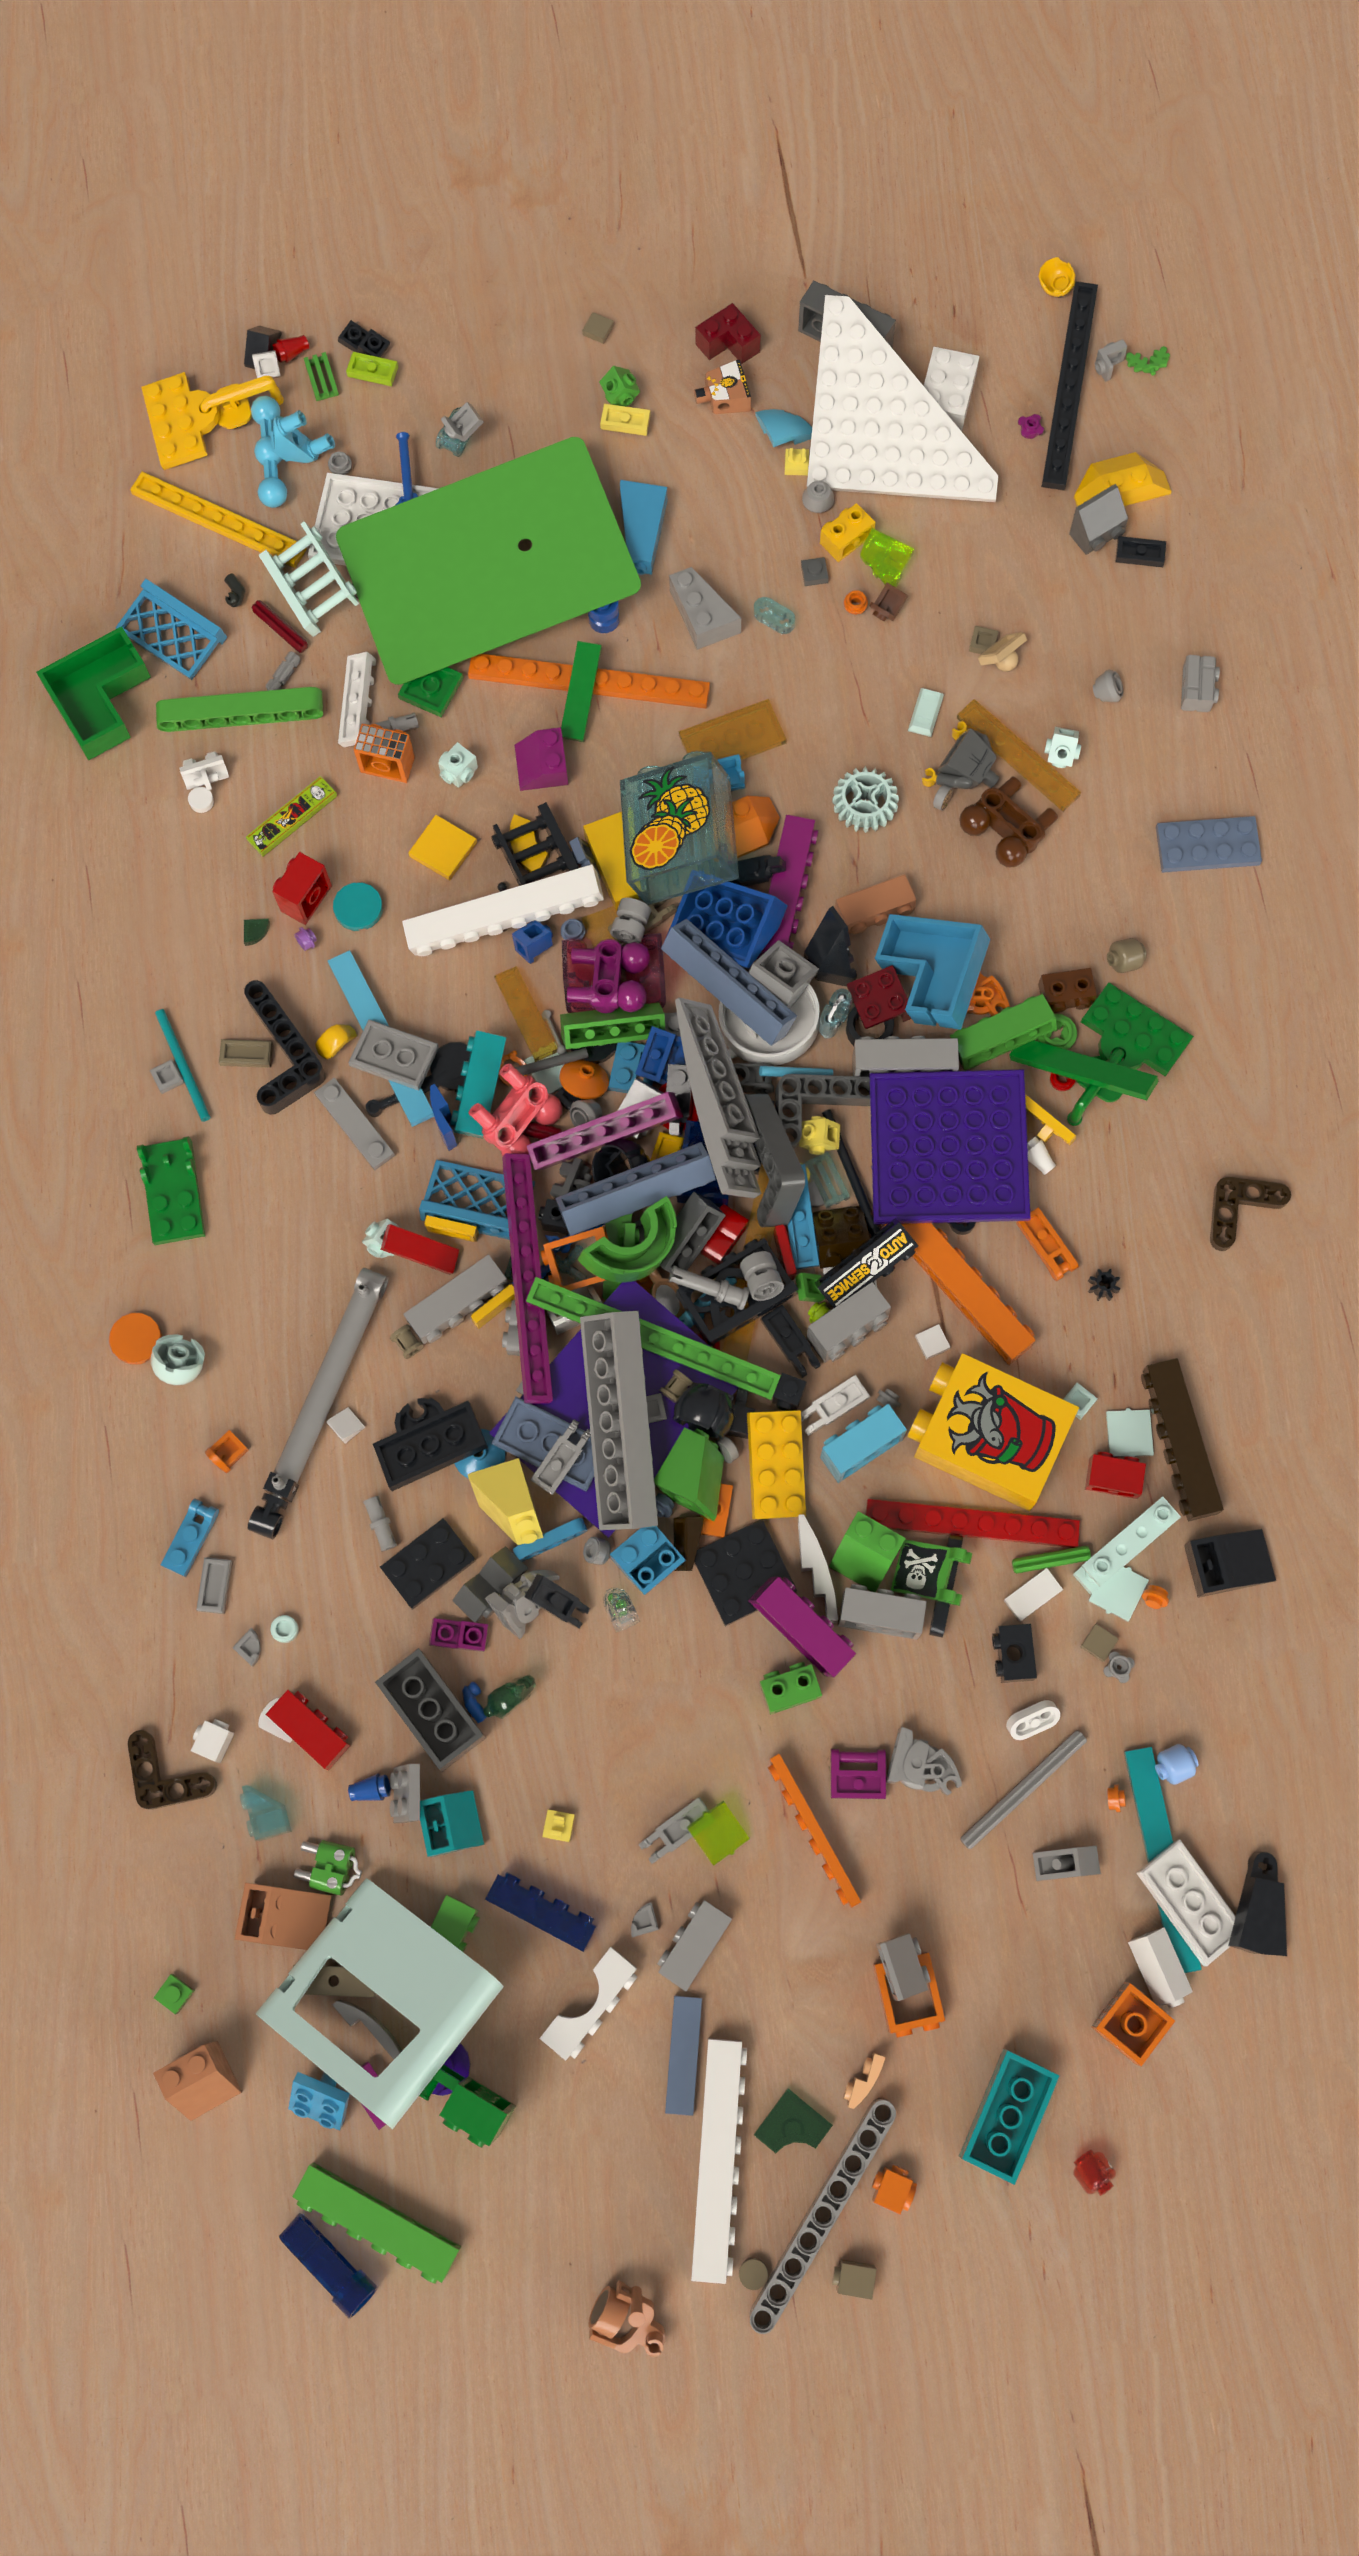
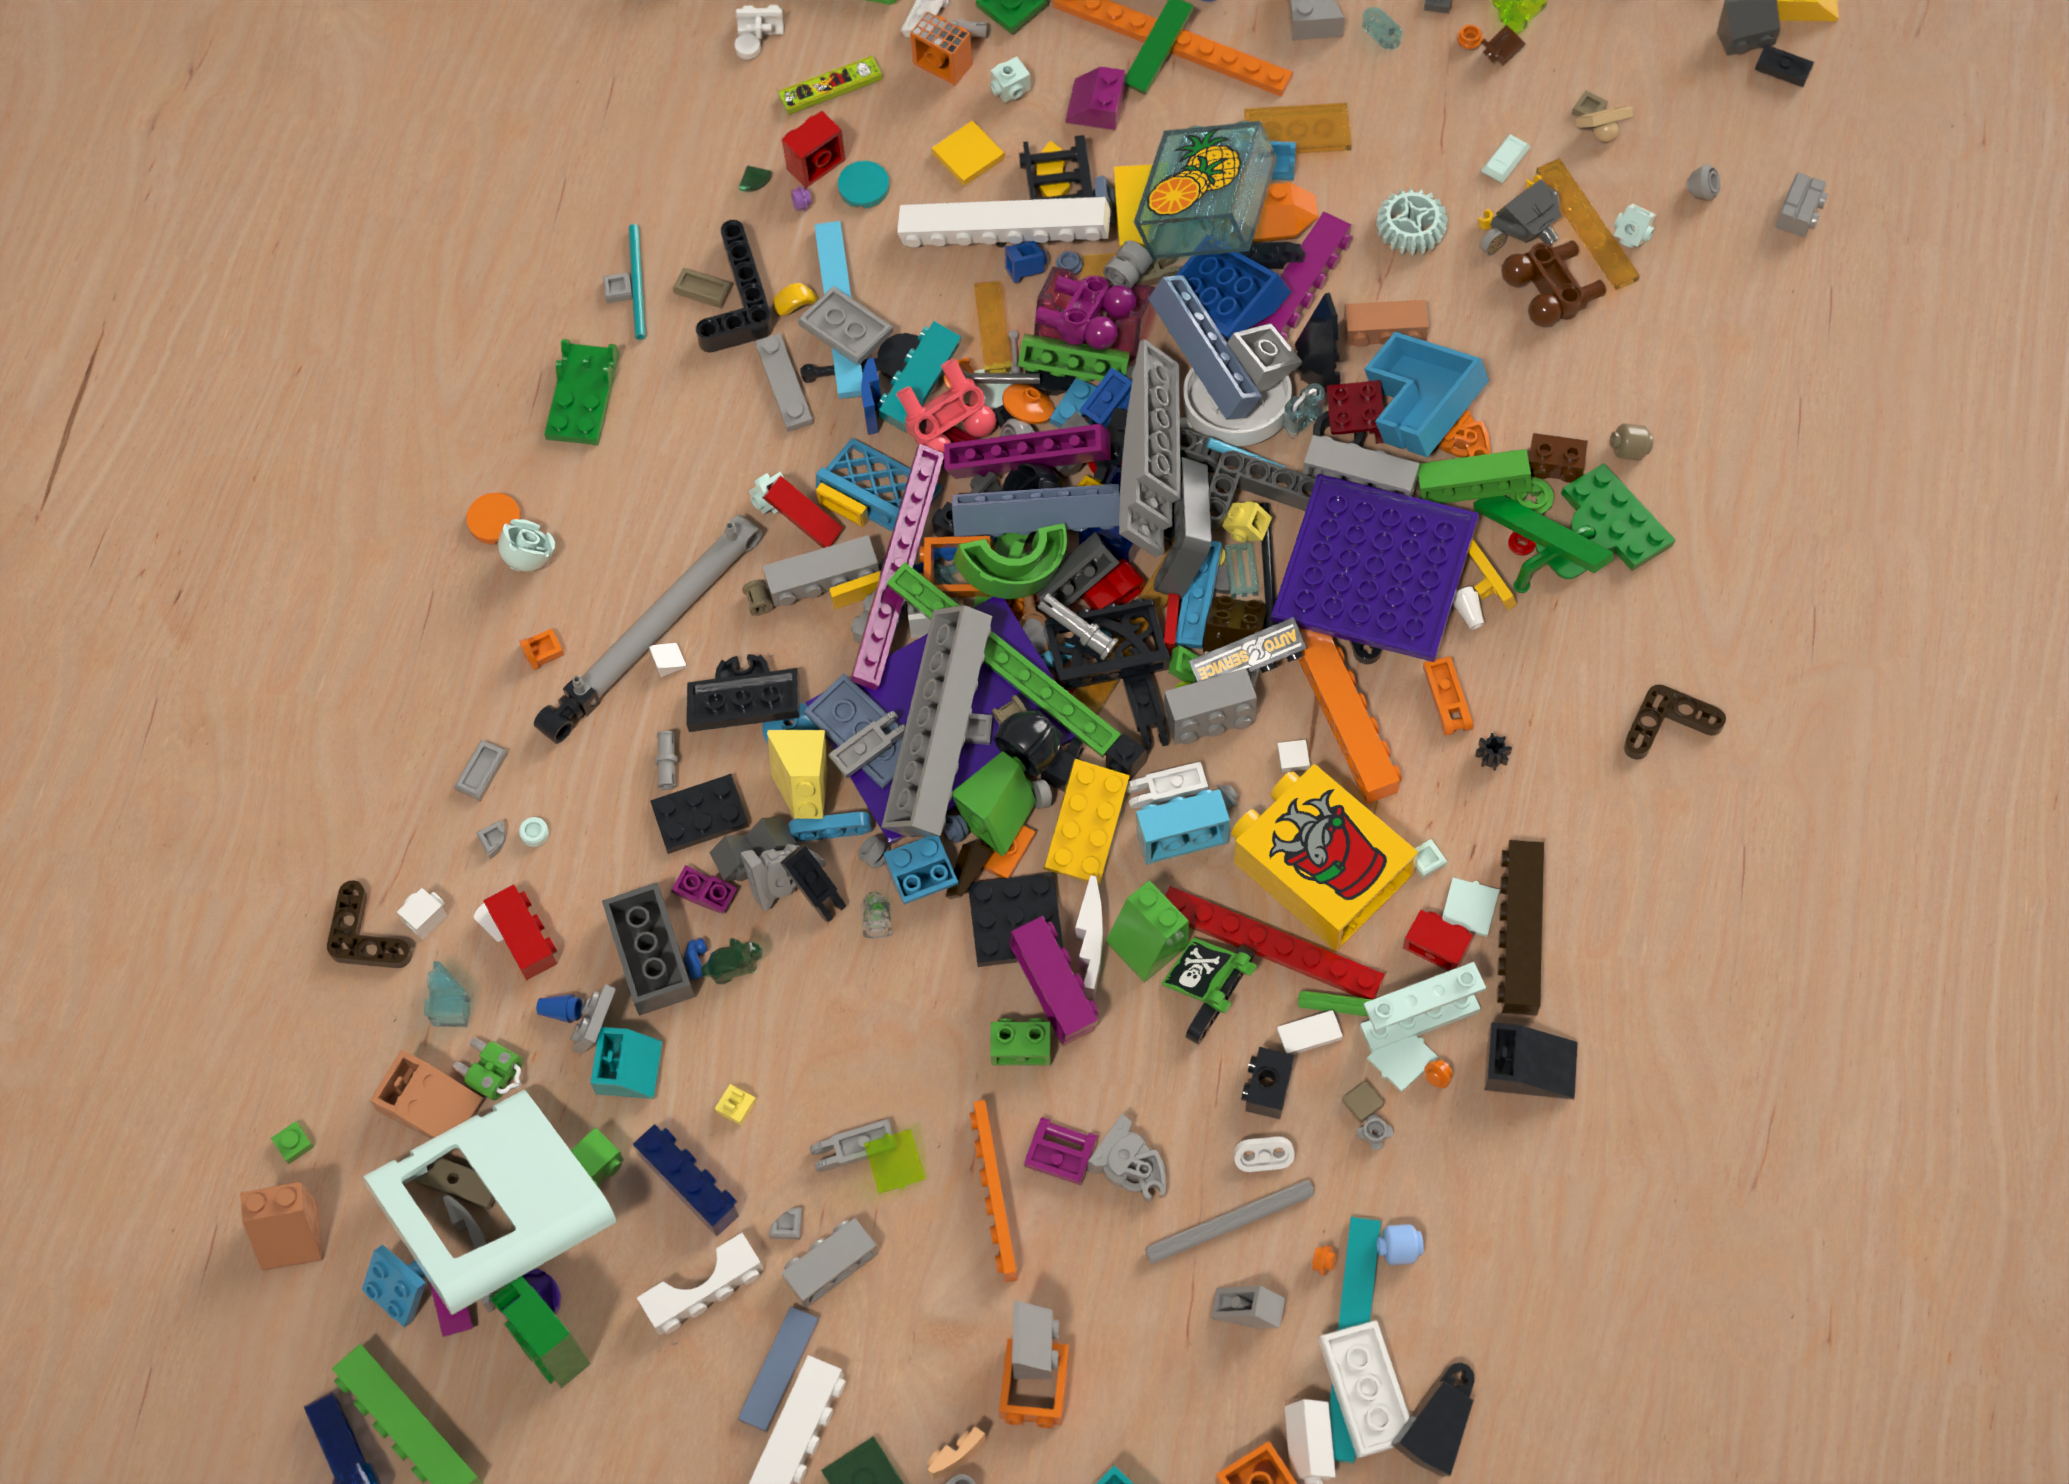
camera: 20 degrees right, 10 degrees down
(189, 1538) = (474, 718): dark azure plate -> none
(761, 1276) = (1135, 631): light grey wheel -> none
(882, 1612) = (1141, 996): light grey brick -> none
(1208, 844) = (1758, 361): sand blue plate -> none

